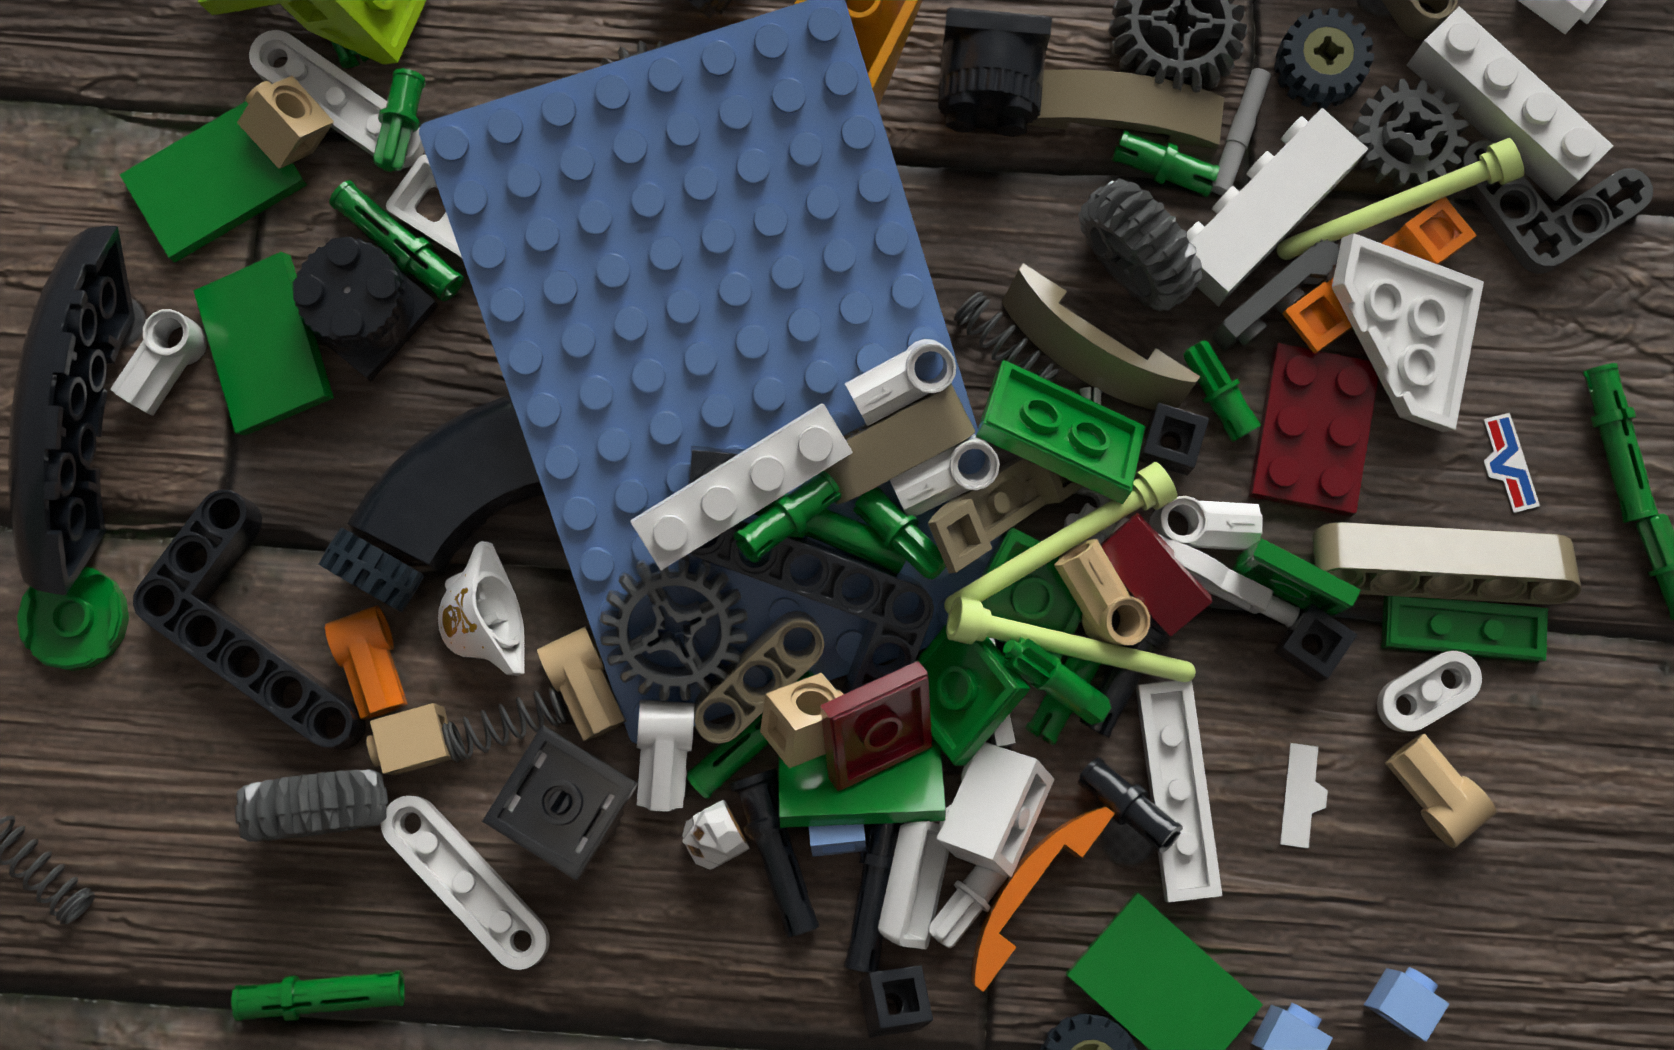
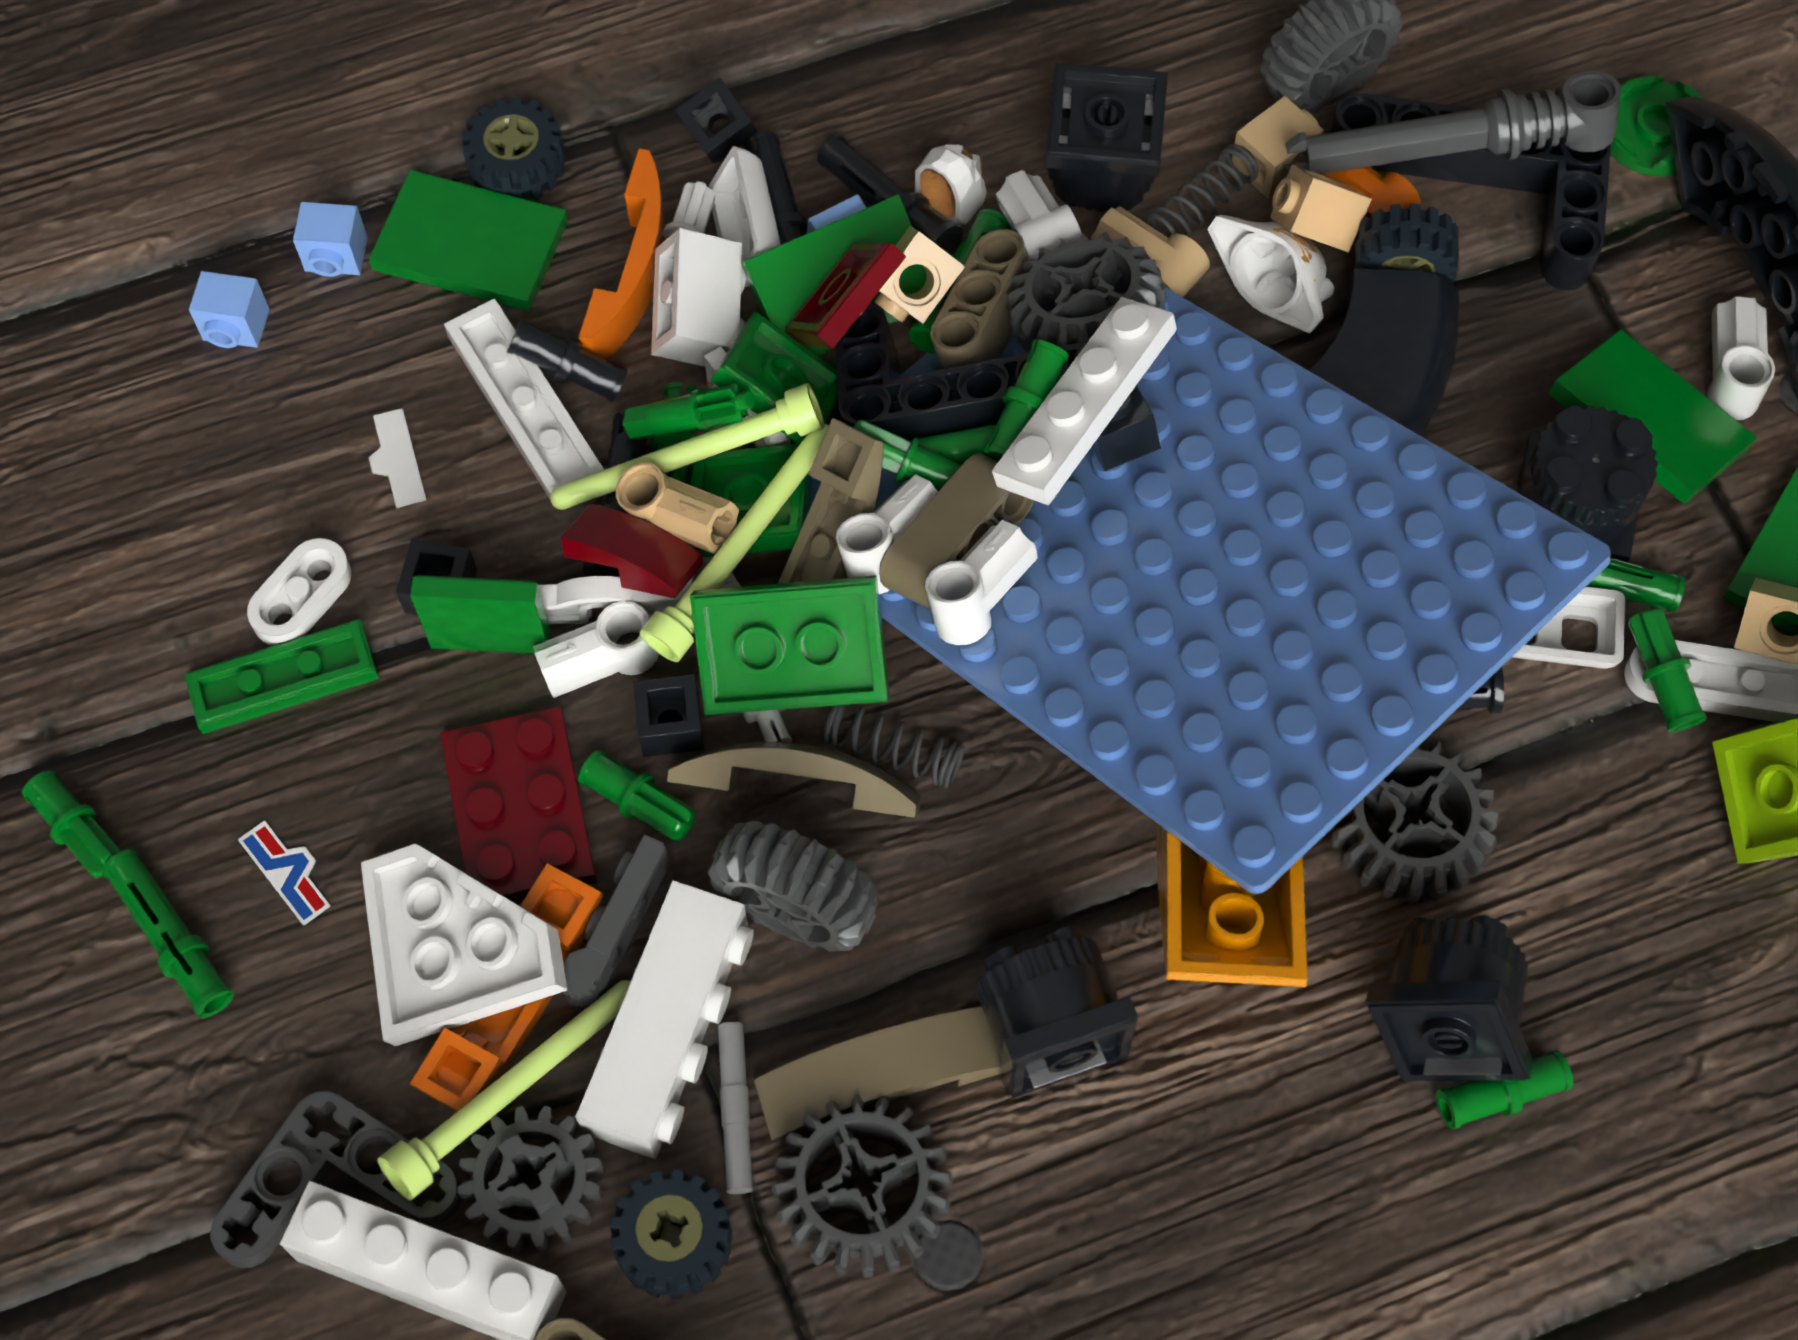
camera: 155 degrees right, 15 degrees down
(221, 633) = (1577, 114): none -> dark grey piece
(420, 641) = (1319, 208): none -> tan brick
(465, 882) = (1194, 72): white plate -> none
(1165, 163) = (806, 1021): green pin -> none
(1449, 562) = (323, 714): beam -> none
(1450, 803) = (245, 498): tan piece -> none

